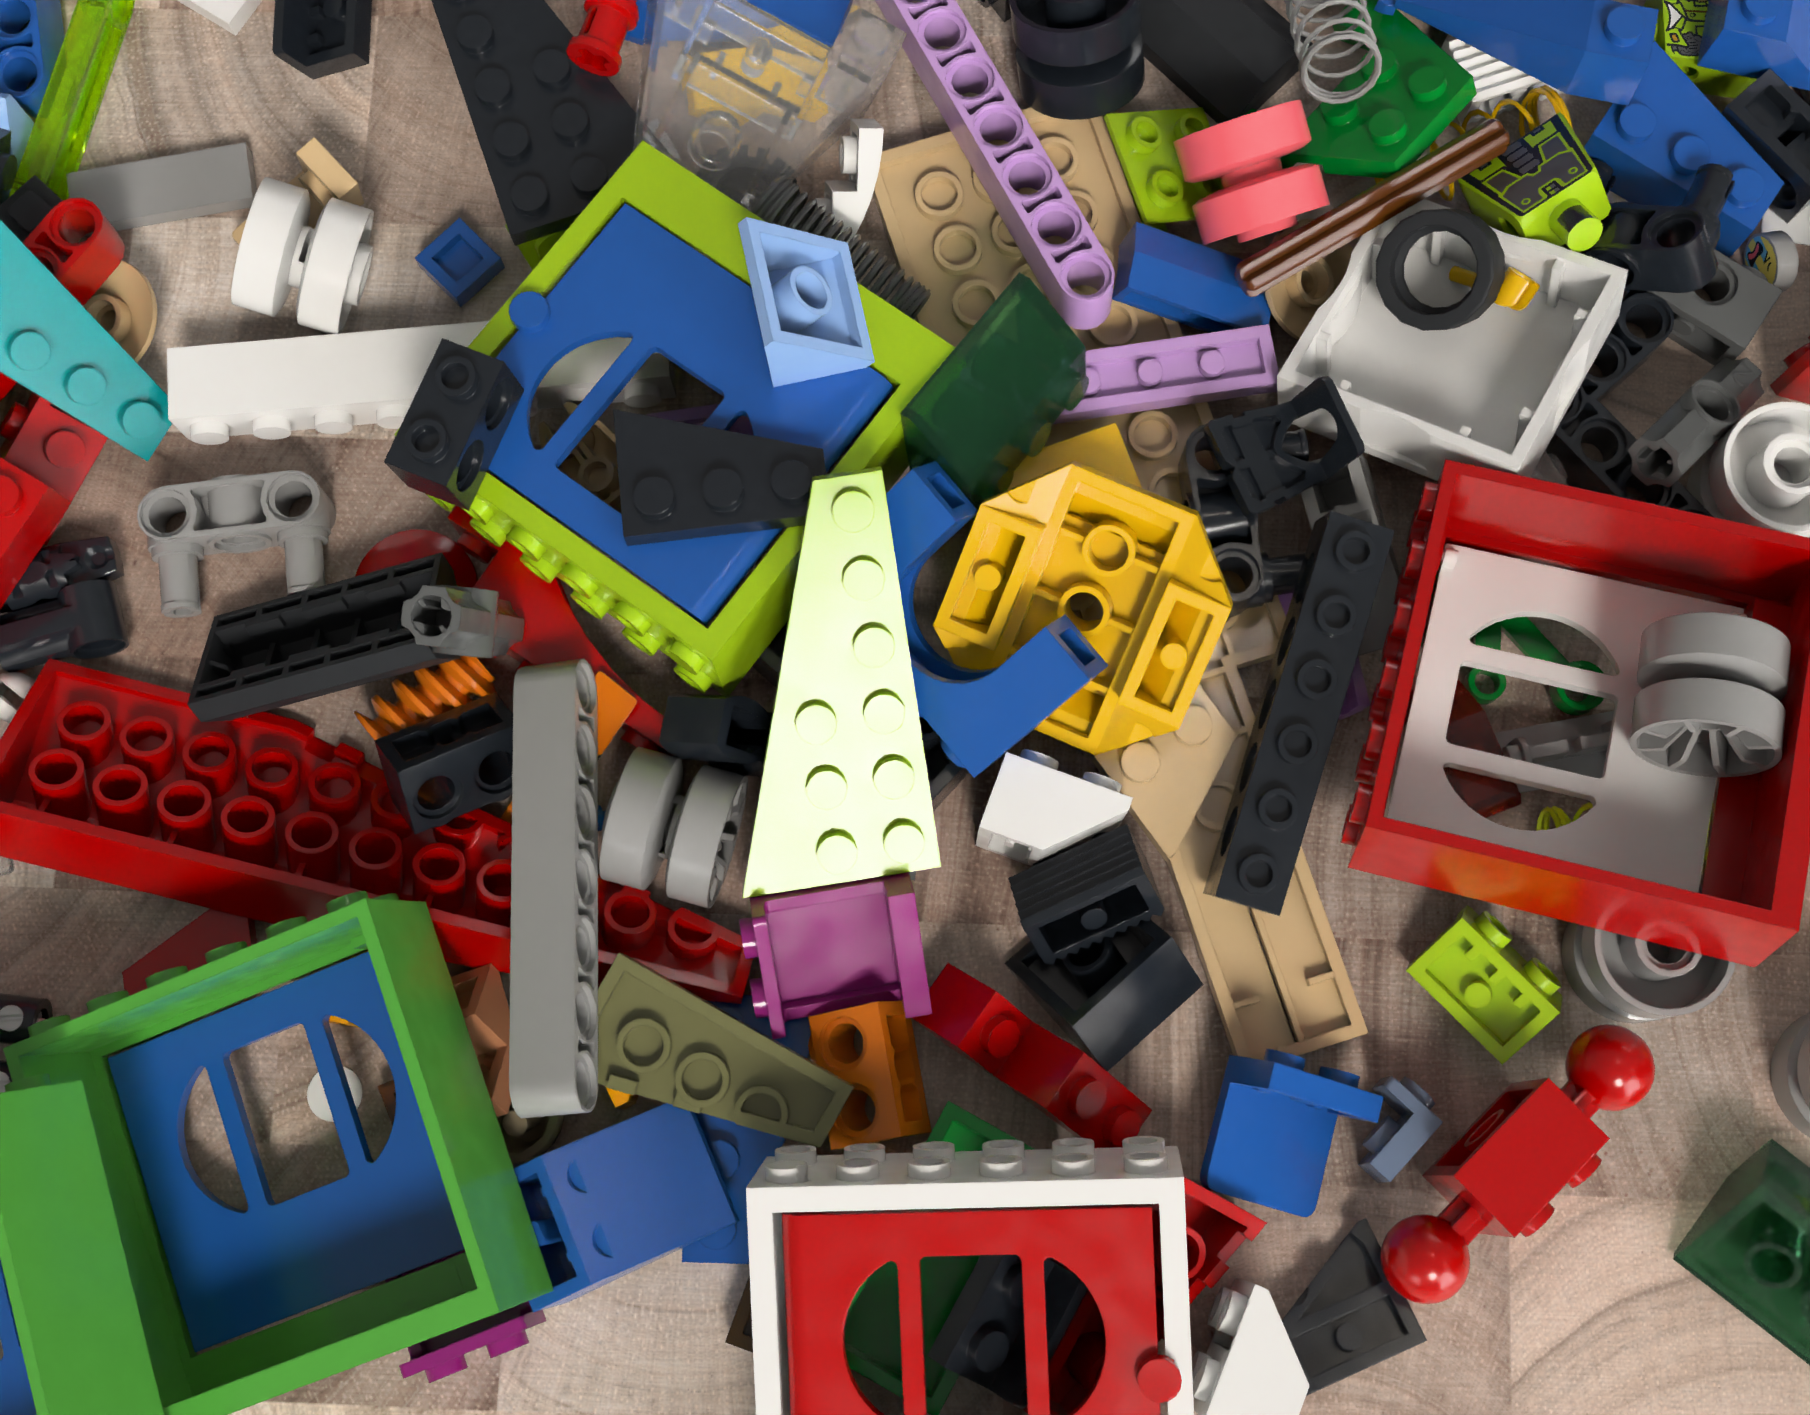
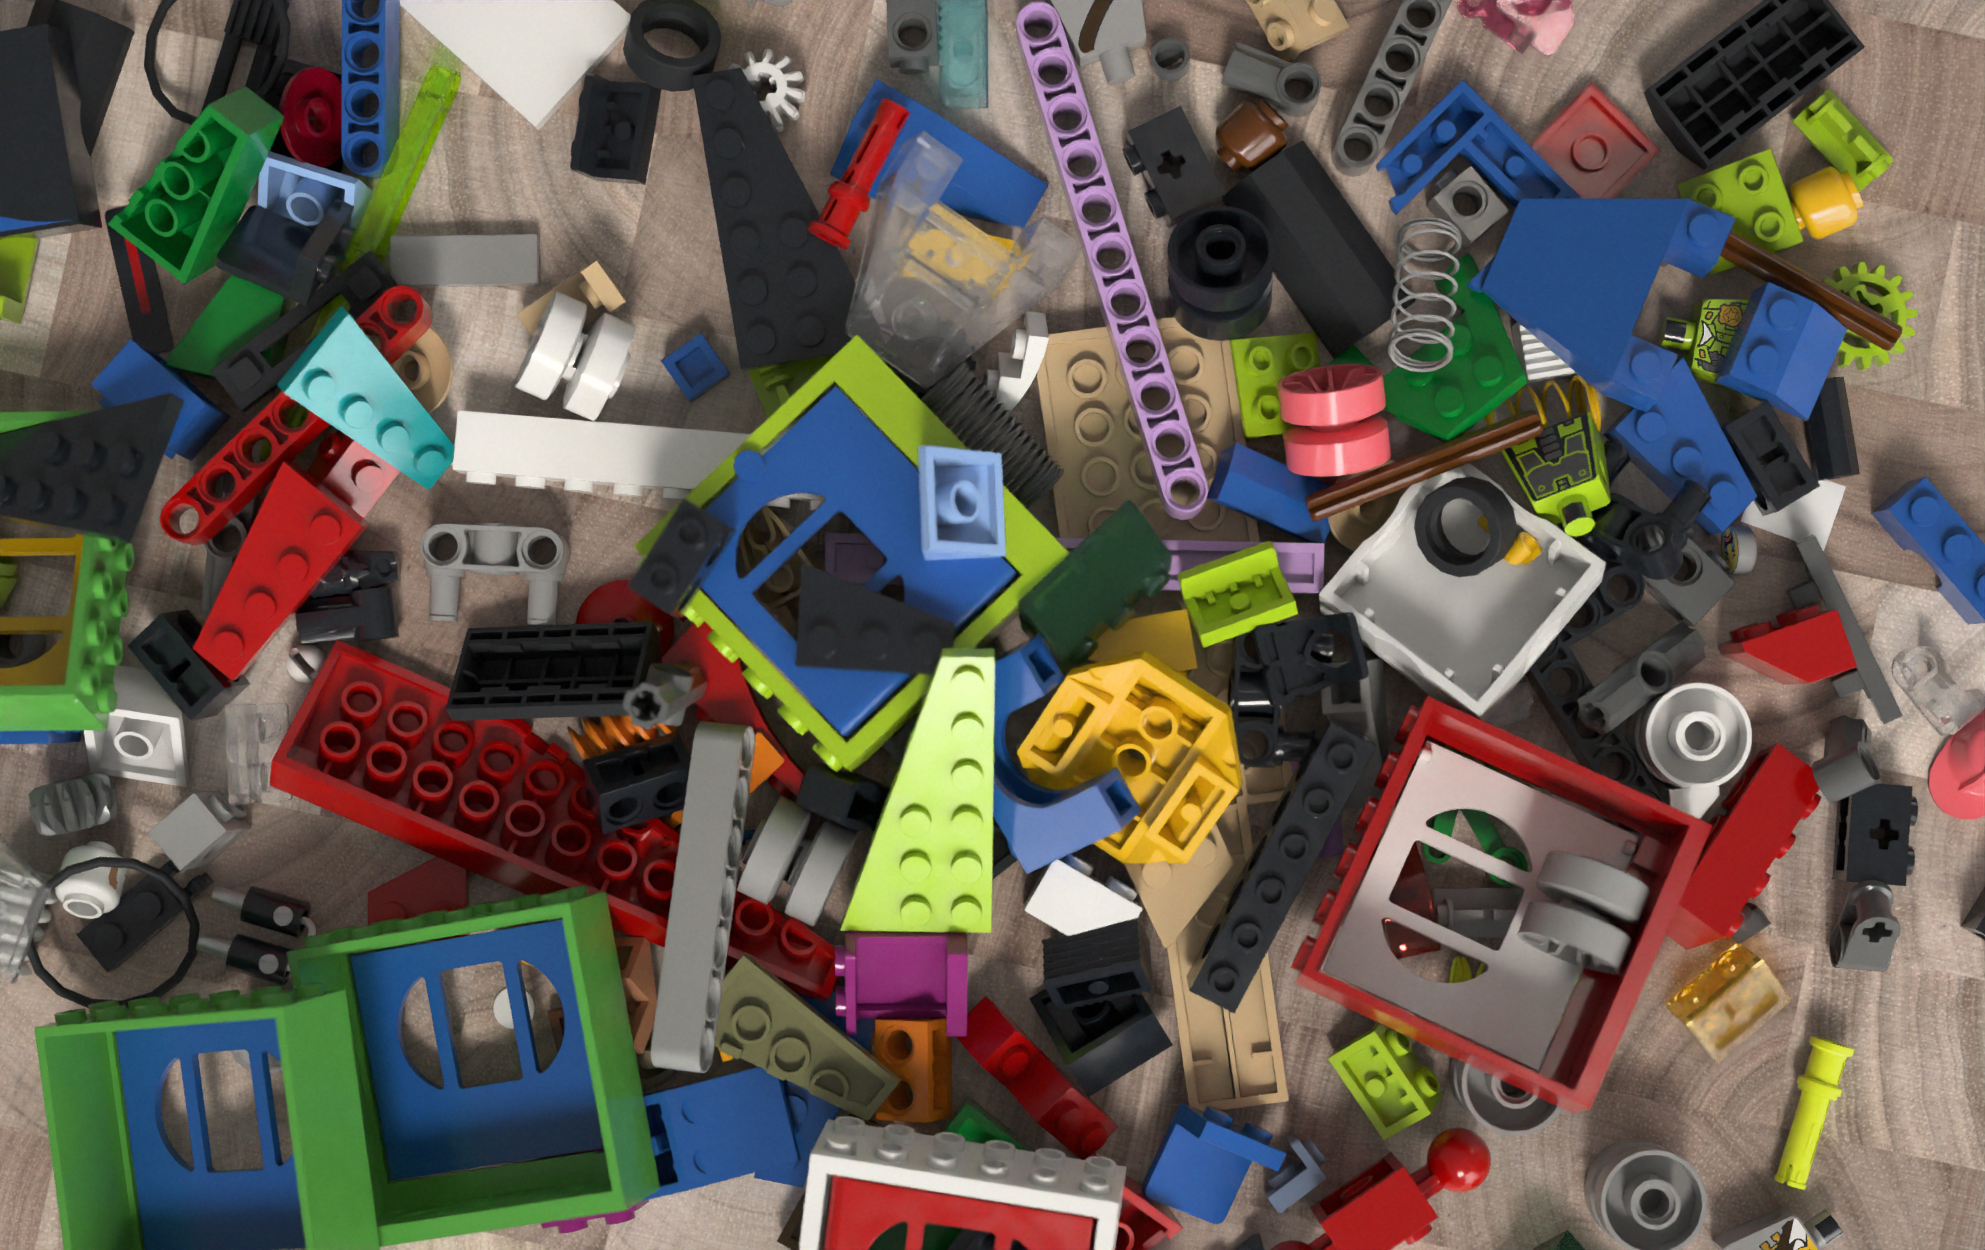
camera: 15 degrees right, 10 degrees up
(1173, 389) = (1236, 594): none -> lime bracket

